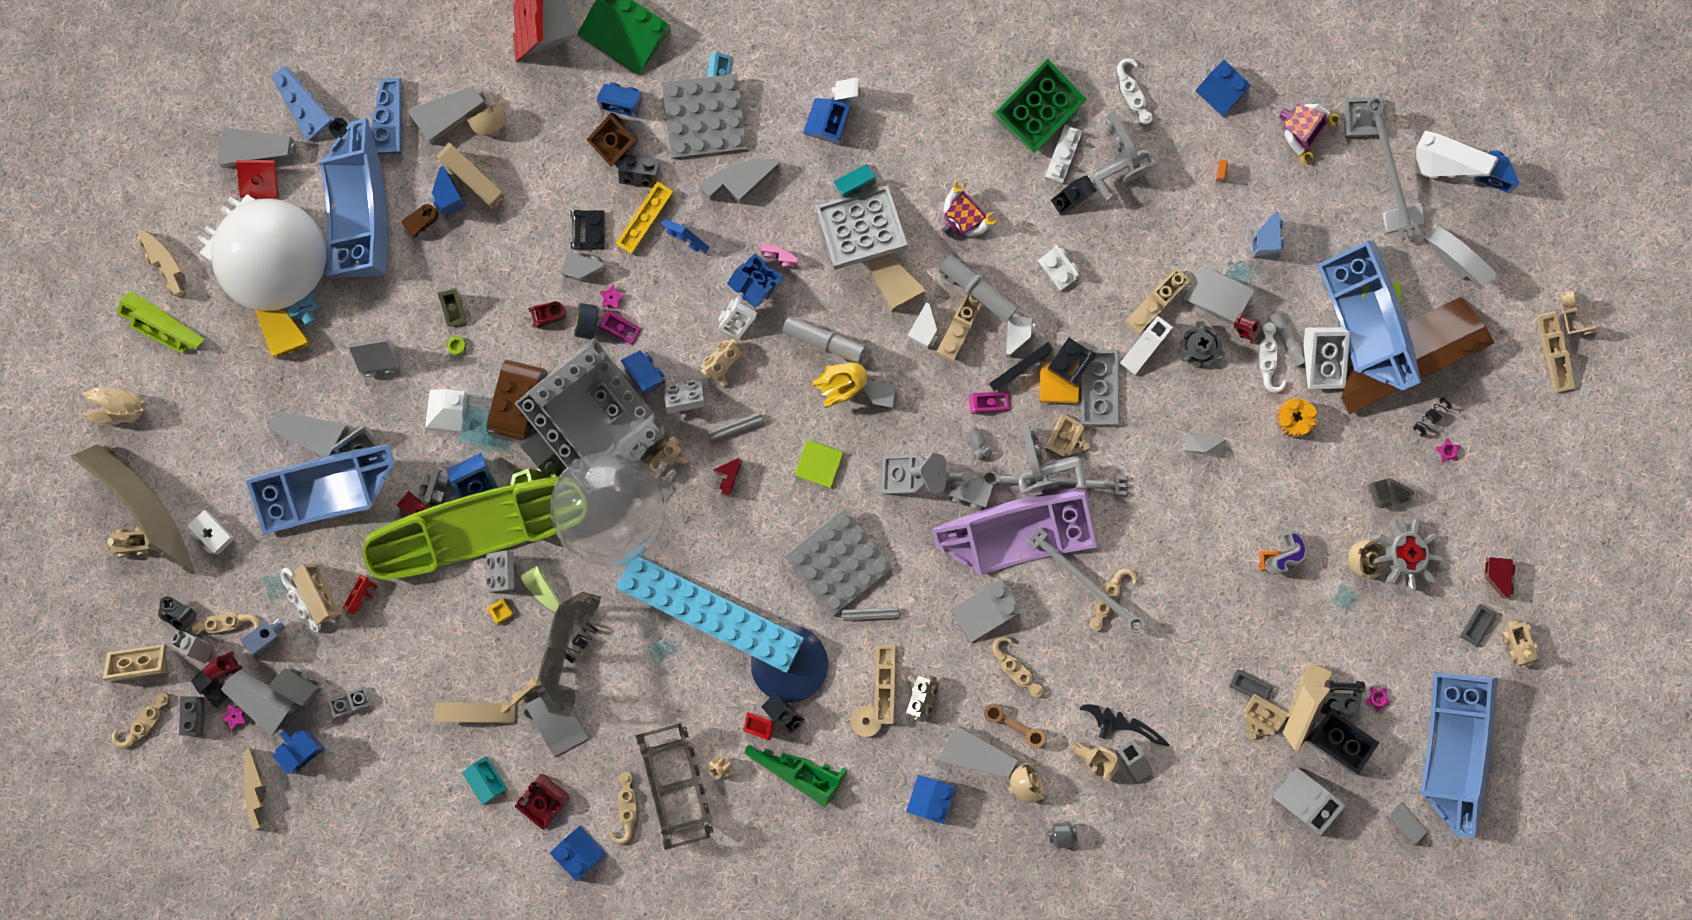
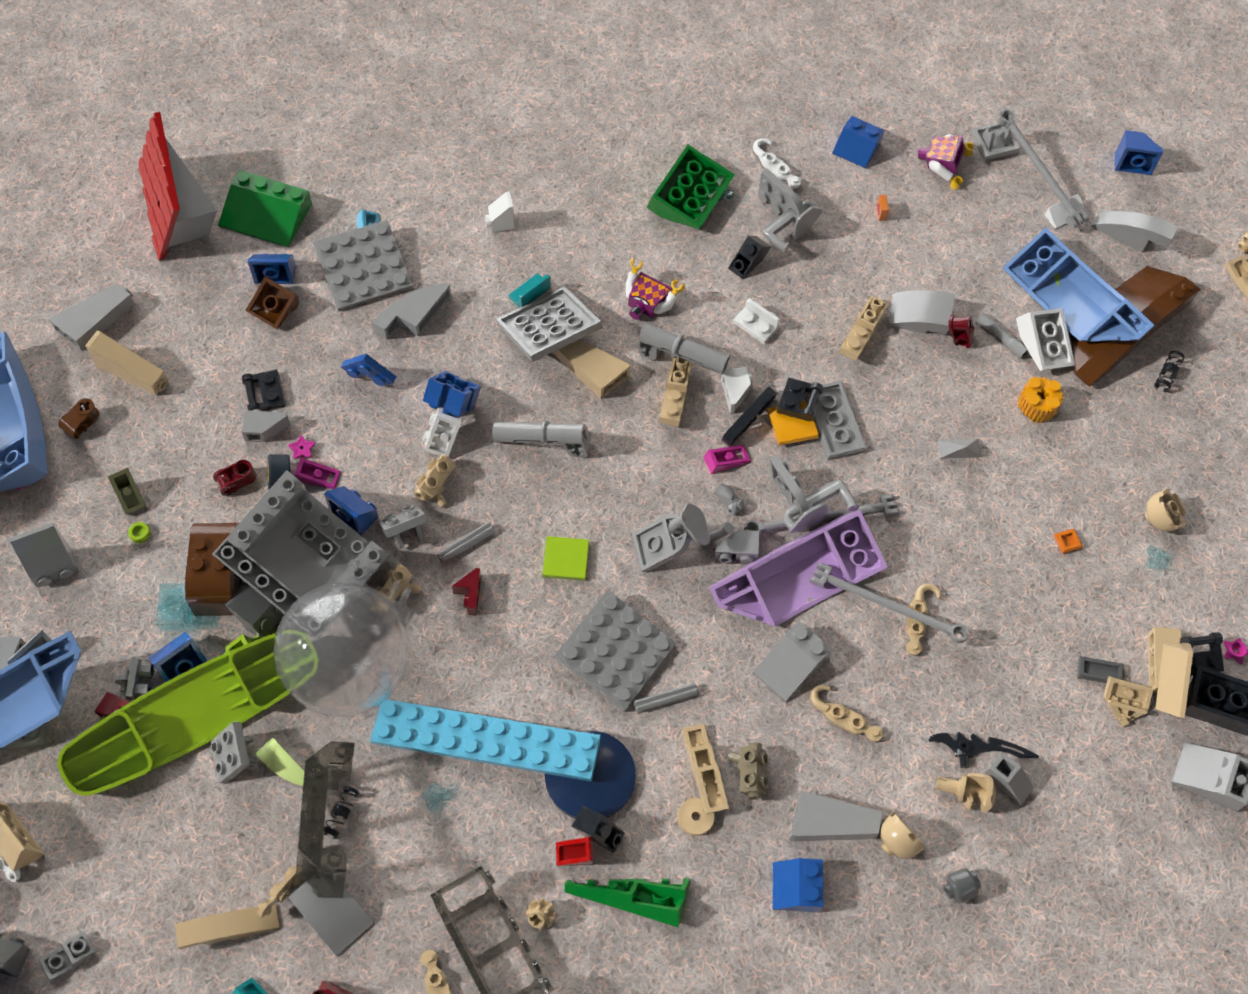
camera: 25 degrees left, 20 degrees down
(359, 590) = (58, 833): red plate -> none
(387, 118) = (30, 333): medium blue wing -> none
(446, 196) = (104, 385): blue slope -> none
(446, 409) = (137, 597): white slope -> none
(488, 121) = (137, 312): tan cylinder -> none
(500, 611) = (238, 801): yellow tile -> none
(638, 171) = (306, 328): black bracket -> none
(644, 218) = (321, 367): yellow plate -> none
(785, 258) = (479, 370): bright pink slope -> none
(827, 120) = (488, 242): blue slope -> none
(841, 382) = (567, 466): yellow hair -> none
(880, 393) = (609, 473): light grey slope -> none
(924, 328) = (639, 403): white slope -> none
(994, 714) = (837, 770): medium nougat piece -> none
(1063, 154) = (727, 226): white plate -> none
(1067, 437) = (818, 471): tan slope -> none
(1146, 345) = (868, 367): white slope -> none
(1201, 334) = (921, 356): dark grey piece -> none
(1237, 269) = (930, 284): clear light blue piece -> none
(1267, 240) = (951, 249): medium blue slope -> none
(1268, 358) = (990, 356): white piece -> none
(1294, 556) = (1091, 526): light grey animal -> none
(1388, 491) = (1158, 445): clear smoke slope -> none
(1407, 554) = (1205, 497): light grey gear -> none
(1446, 157) = (1083, 148): white wedge -> none
(1453, 451) = (1202, 396): dark pink plate -> none

